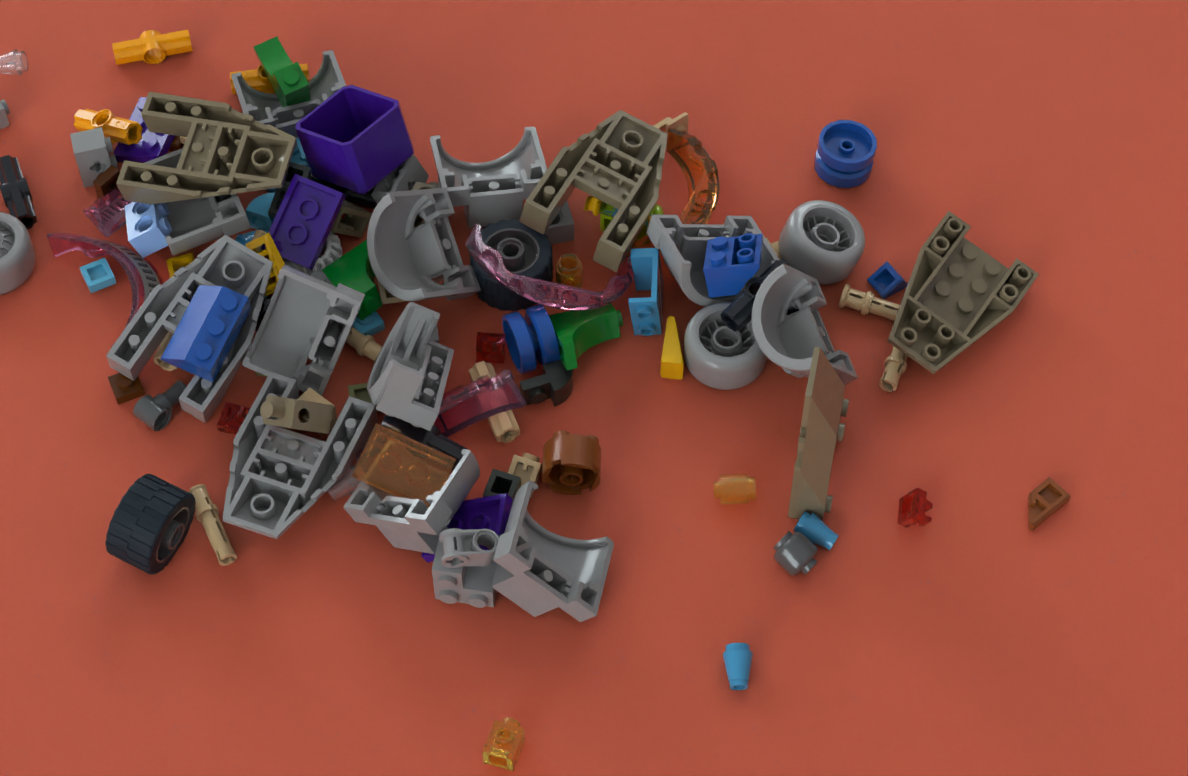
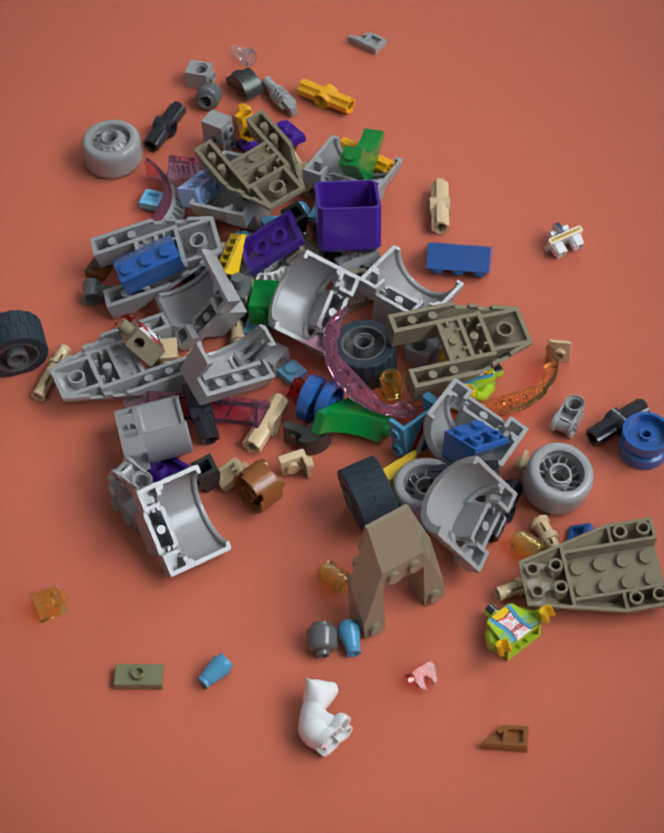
camera: 50 degrees right, 5 degrees down
(26, 128) = (208, 96): none -> dark grey head
(50, 87) = (245, 82): none -> pearl dark grey brick
(103, 79) = (280, 96): none -> light grey hinge
(400, 76) = (440, 206): none -> tan piece
(402, 465) = (163, 407): clear orange tile -> none
(455, 335) = (290, 371): none -> medium azure plate
(481, 111) = (459, 258): none -> blue slope
(549, 24) = (561, 236): none -> white hips
(572, 411) = (294, 462): none -> tan bracket
(673, 734) = (139, 676): none -> olive plate
(687, 386) = (367, 491): none -> black wheel
(755, 181) = (569, 416): none -> light grey piece
(799, 156) = (613, 422): none -> black piece
(859, 323) = (525, 543): none -> clear yellow brick
(893, 631) = (317, 726): none -> white animal
(938, 403) = (513, 628): none -> torso

